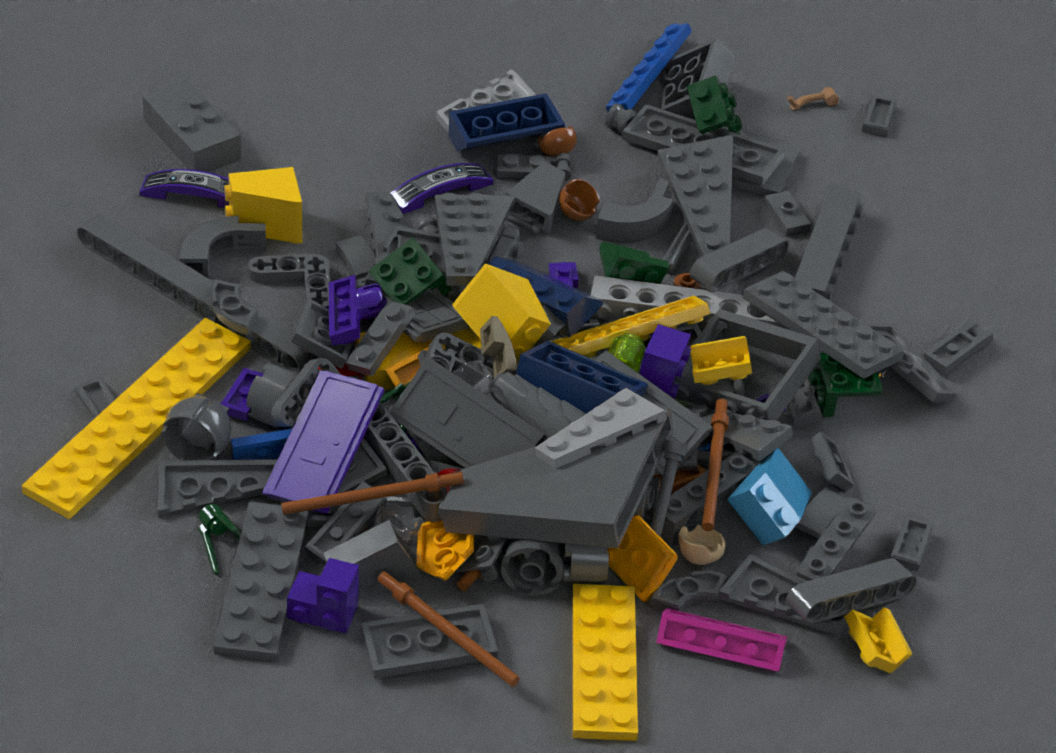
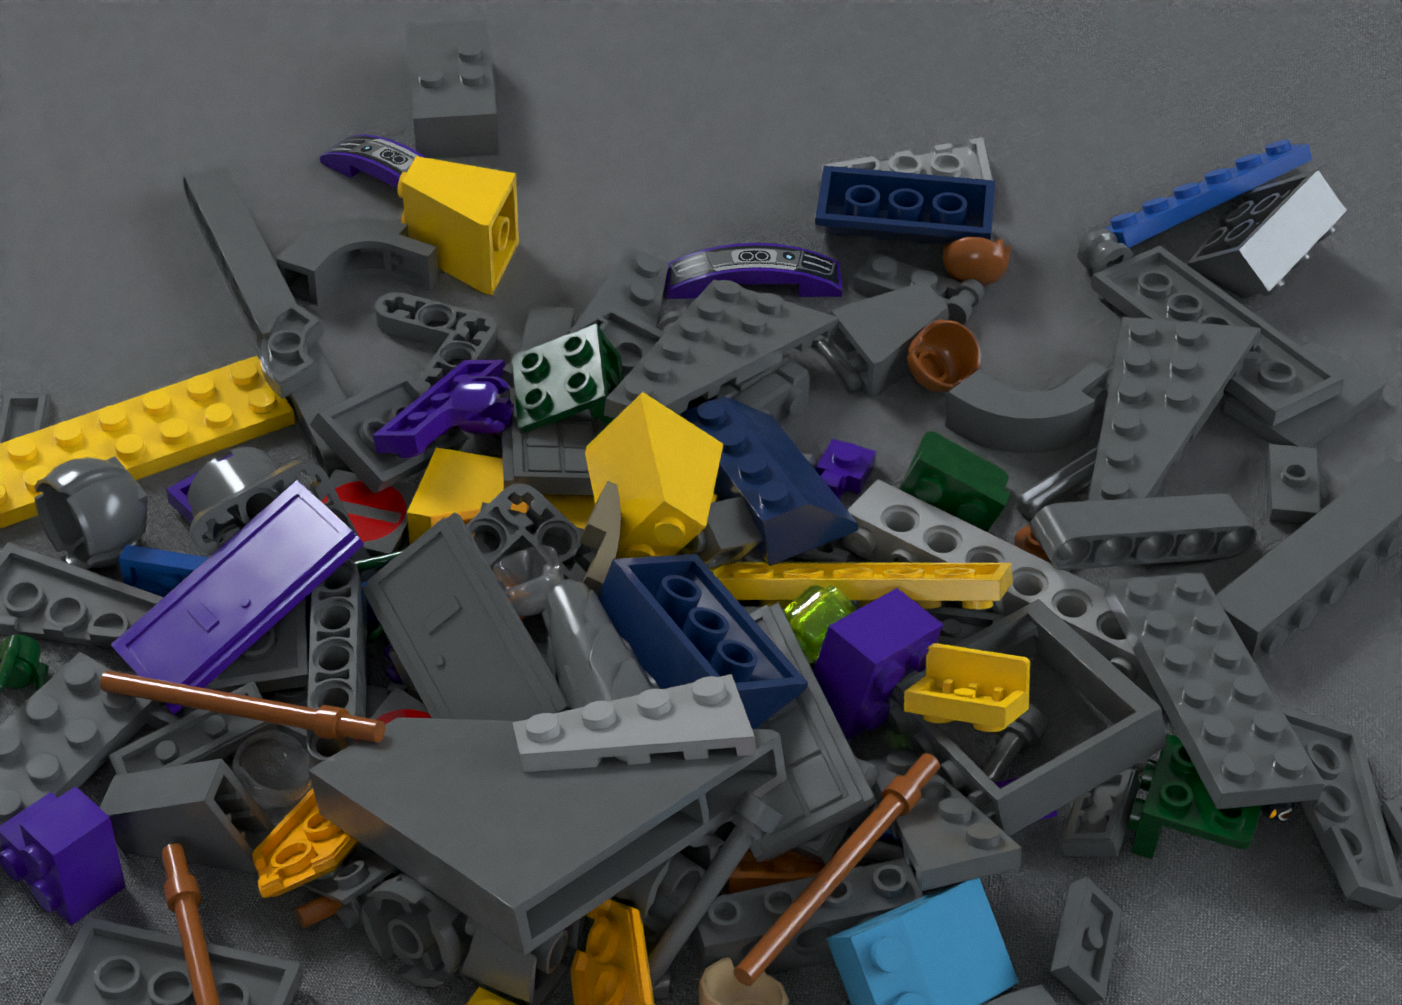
camera: 30 degrees right, 0 degrees up
(380, 338) = (455, 465): dark grey plate -> none
(714, 106) = (1261, 275): dark green bracket -> none

